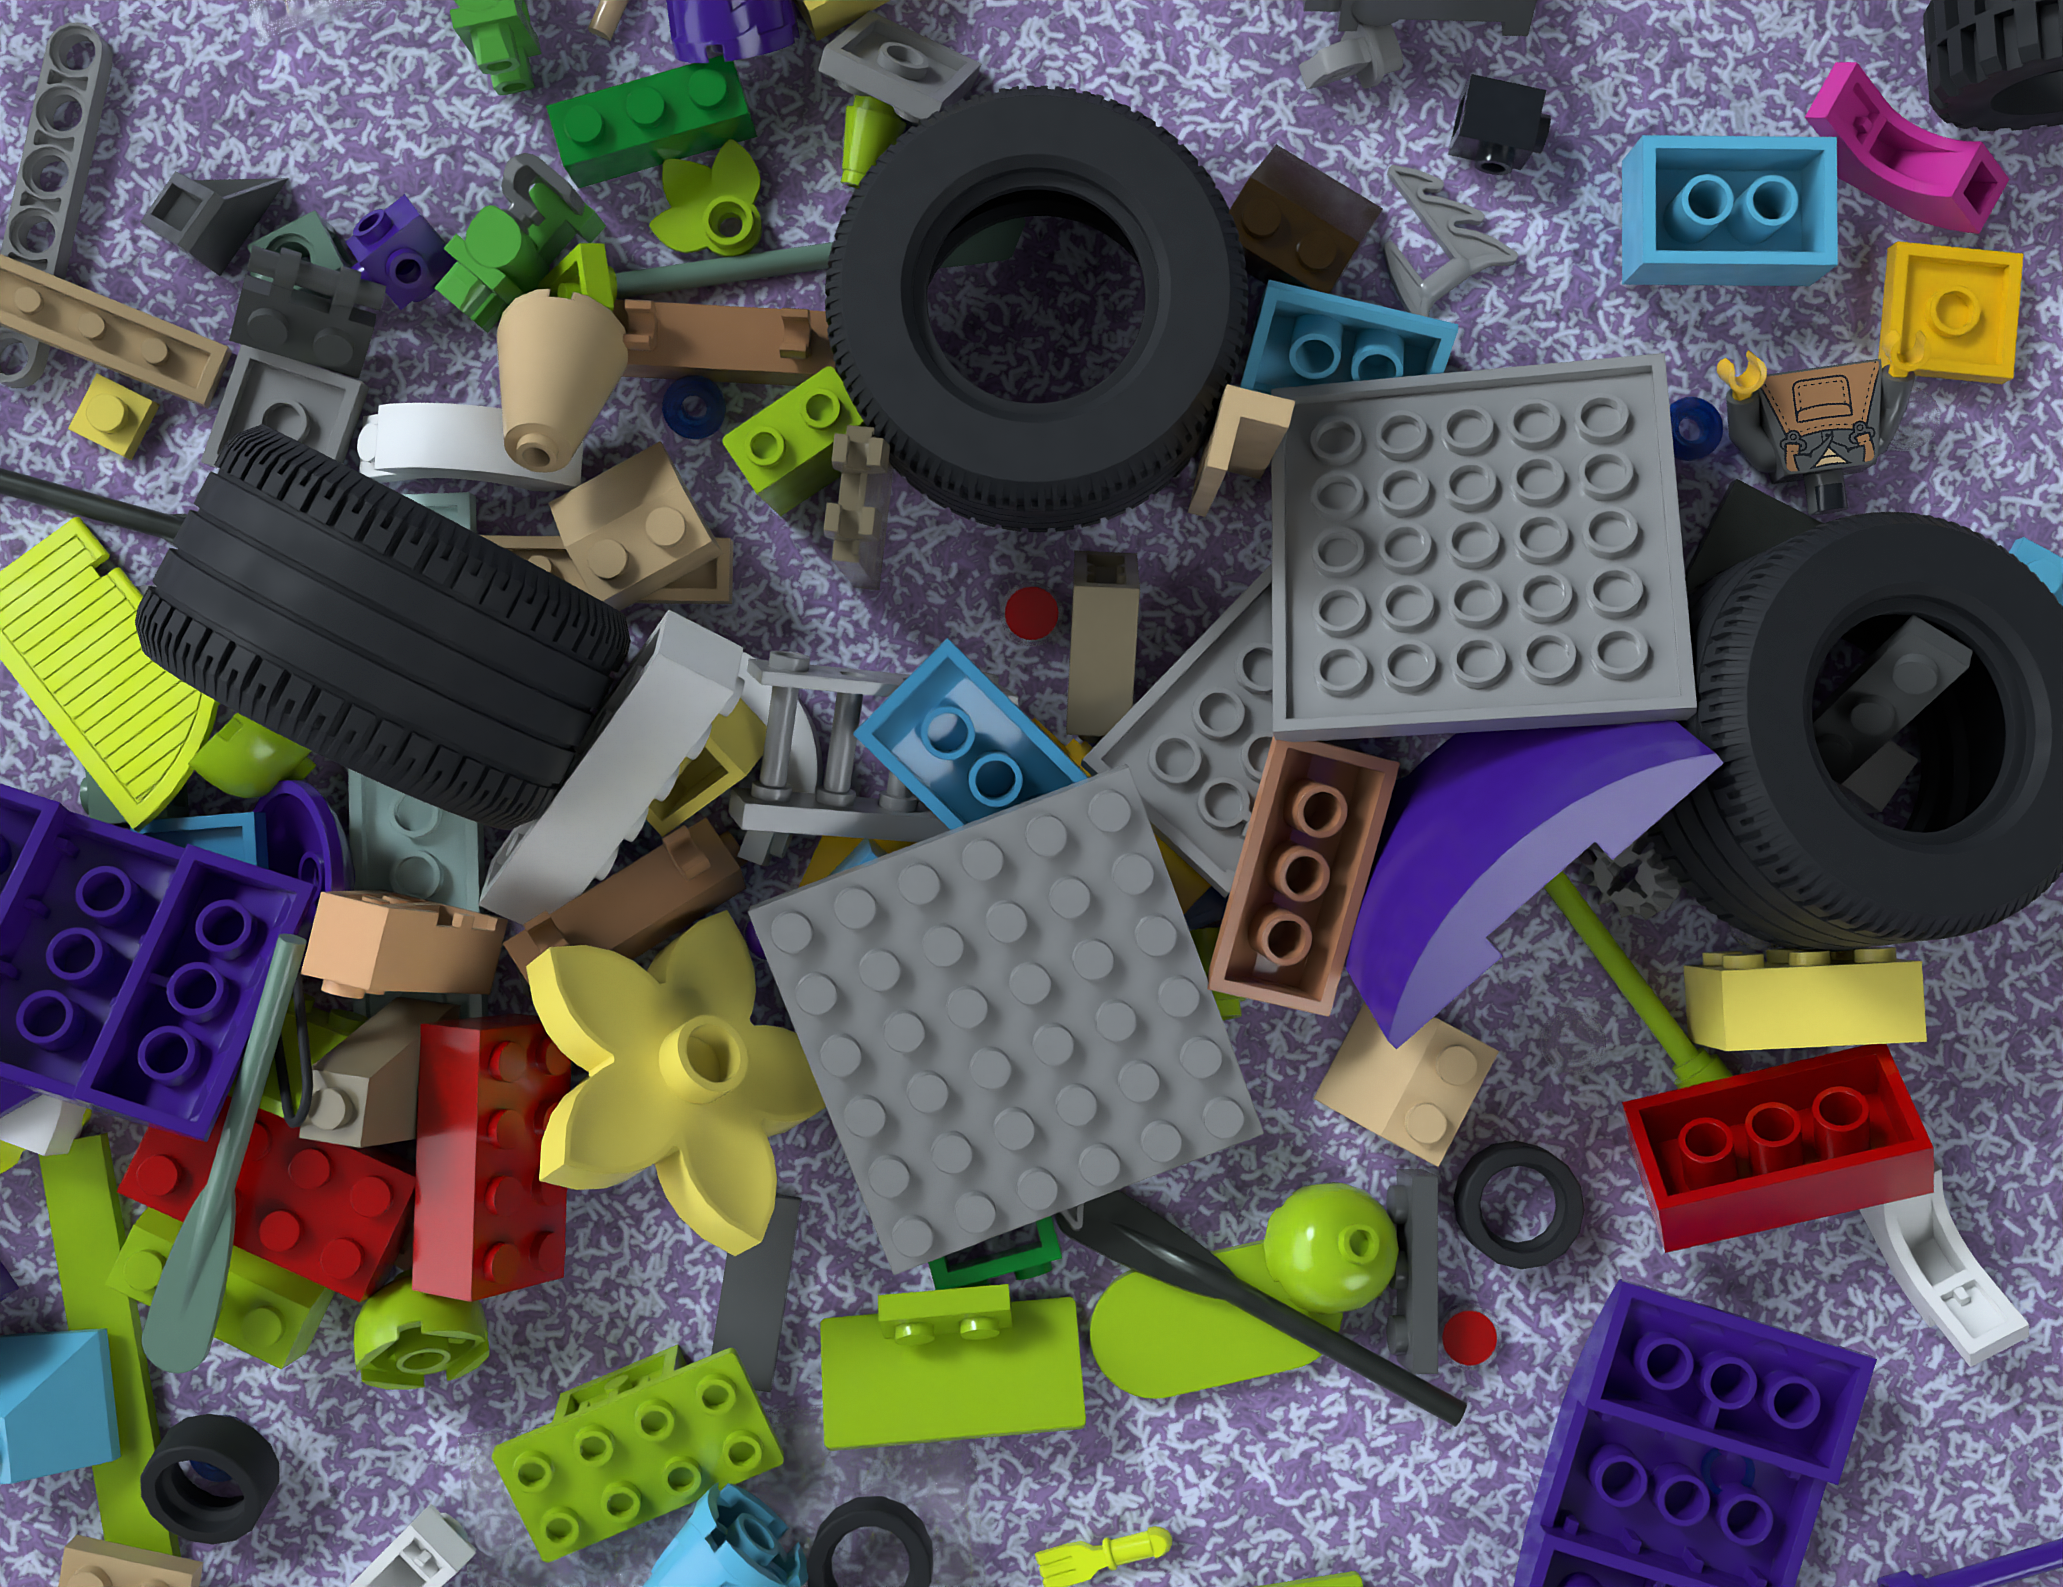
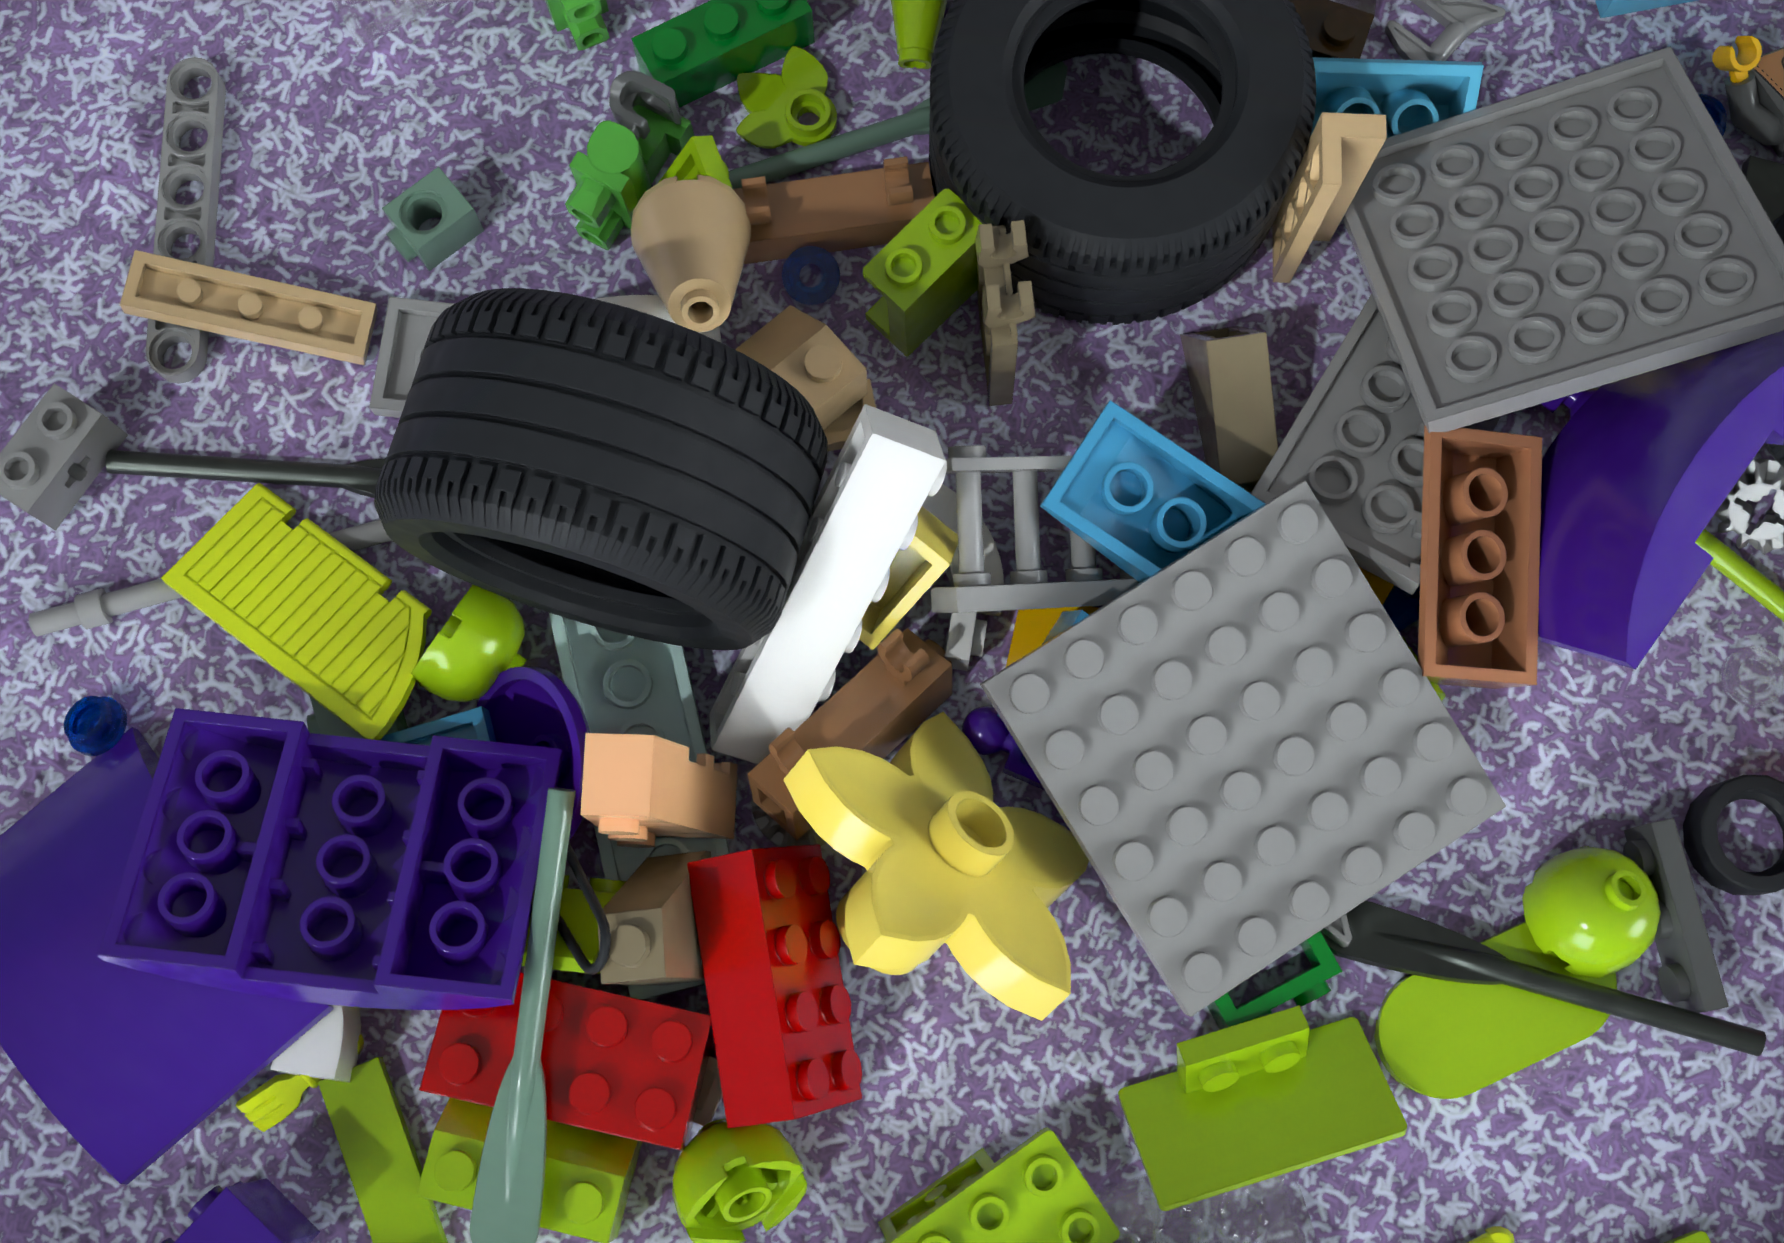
camera: 15 degrees left, 10 degrees down
(114, 416) = (278, 388): light yellow plate -> none
(210, 216) = (336, 199): dark grey slope -> none
(302, 324) = (445, 267): dark grey plate -> none
(400, 252) = (520, 191): dark purple brick -> none
(756, 1296) = (1049, 1077): dark grey tile -> none
(1031, 614) = (1157, 395): red tile -> none
(1411, 1092) = (1614, 736): tan slope -> none
(1468, 1336) = (1743, 972): red tile -> none

